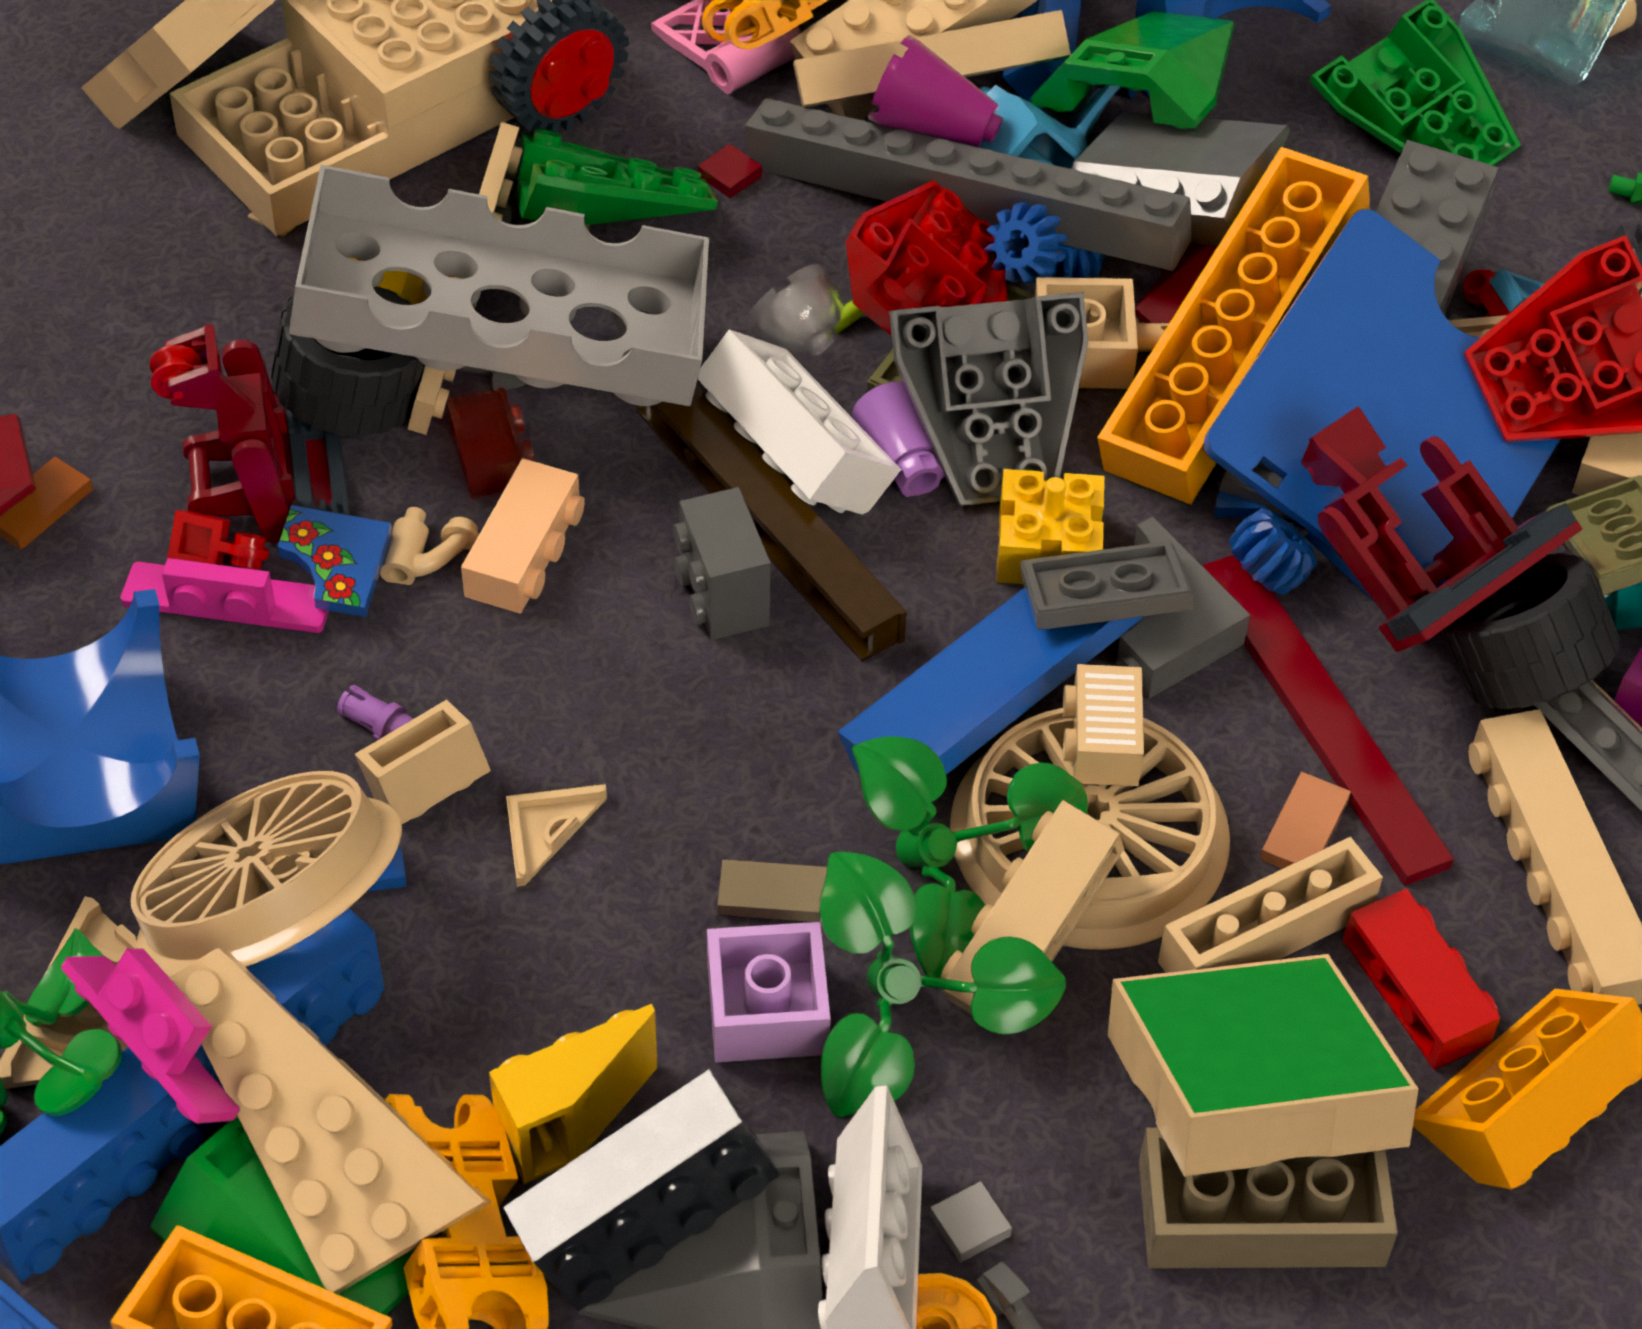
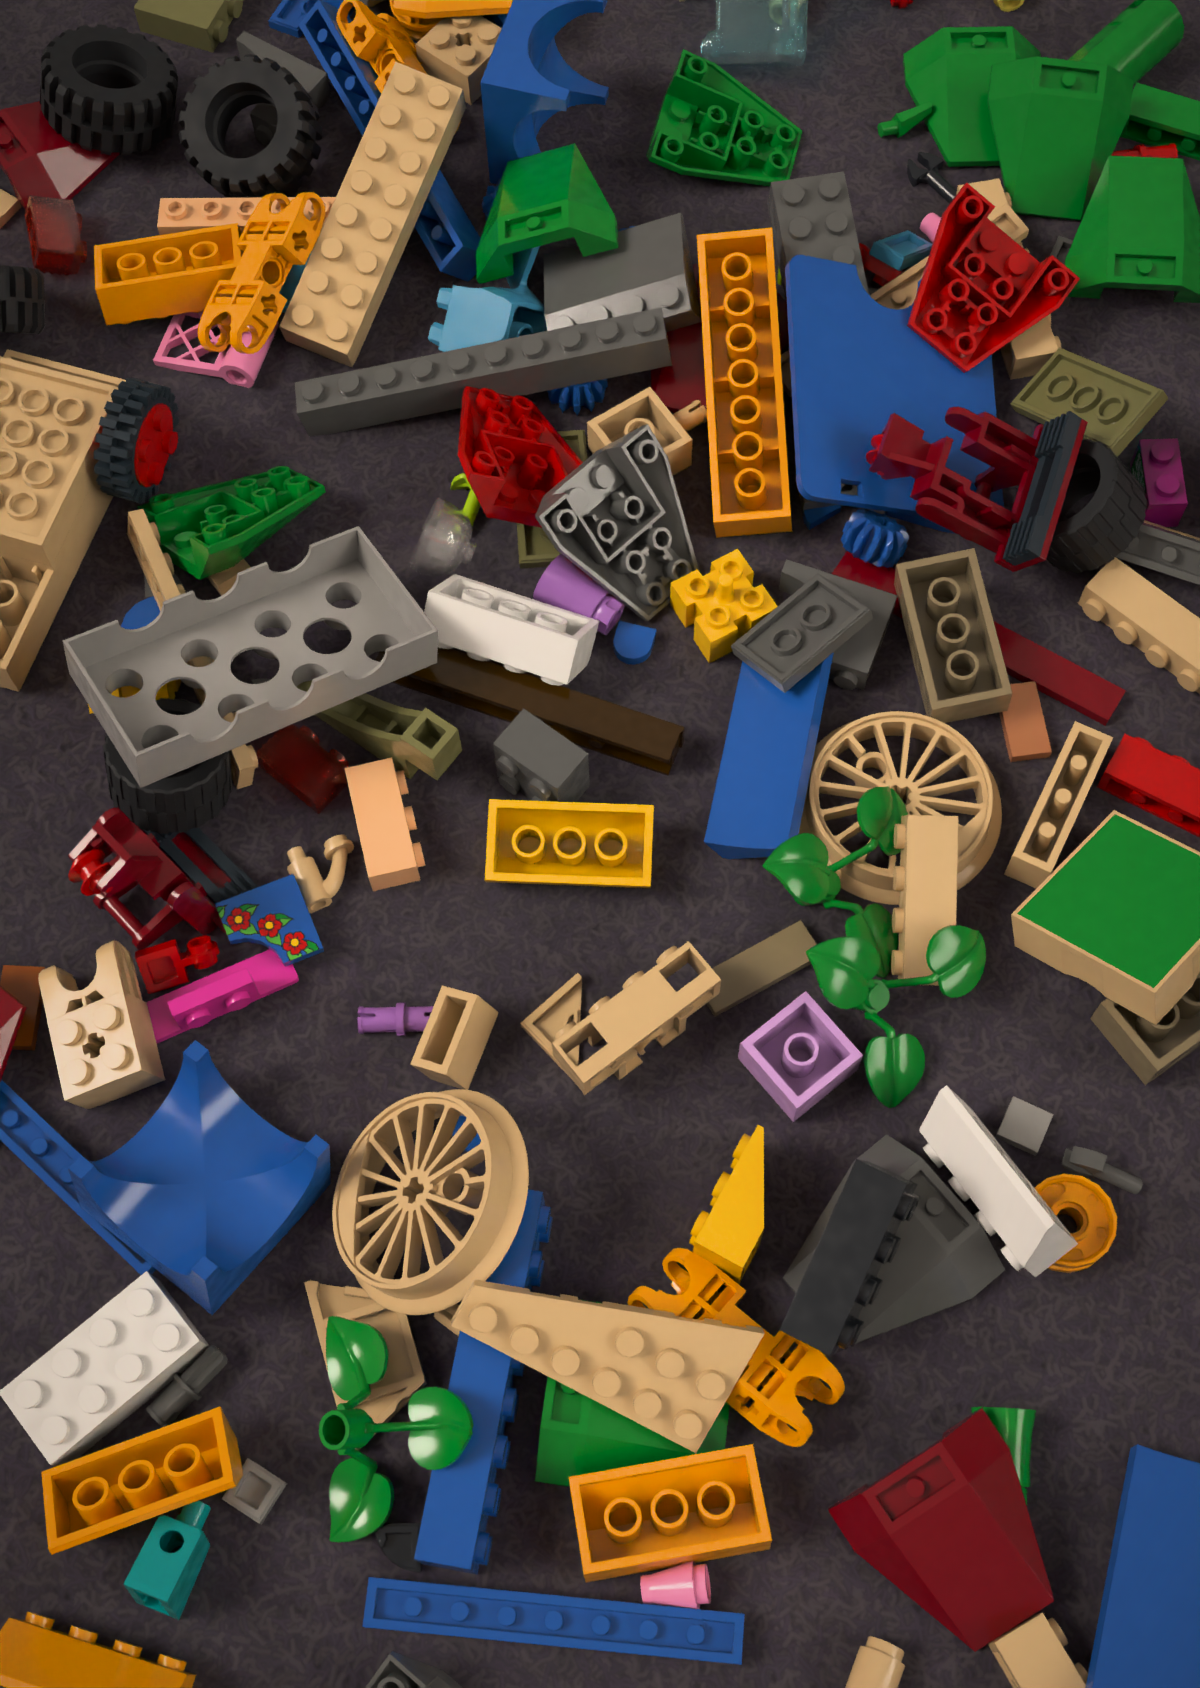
camera: 30 degrees left, 15 degrees up
(89, 556) = (101, 1032): none -> tan brick
(157, 1025) = (468, 1365): dark pink bracket -> none
(602, 453) = (387, 730): none -> olive arch
(616, 838) = (635, 1016): none -> tan piece
(697, 654) = (569, 843): none -> yellow brick
(730, 171) = (300, 450): dark red tile -> none
(928, 517) = (633, 642): none -> blue tile
(933, 99) = (426, 323): magenta cone -> none
(967, 50) = (394, 289): tan tile -> none
(1009, 236) = (563, 413): blue gear -> none
(1106, 725) = (876, 735): tan brick -> none
(1277, 684) = (952, 636): none -> dark tan brick

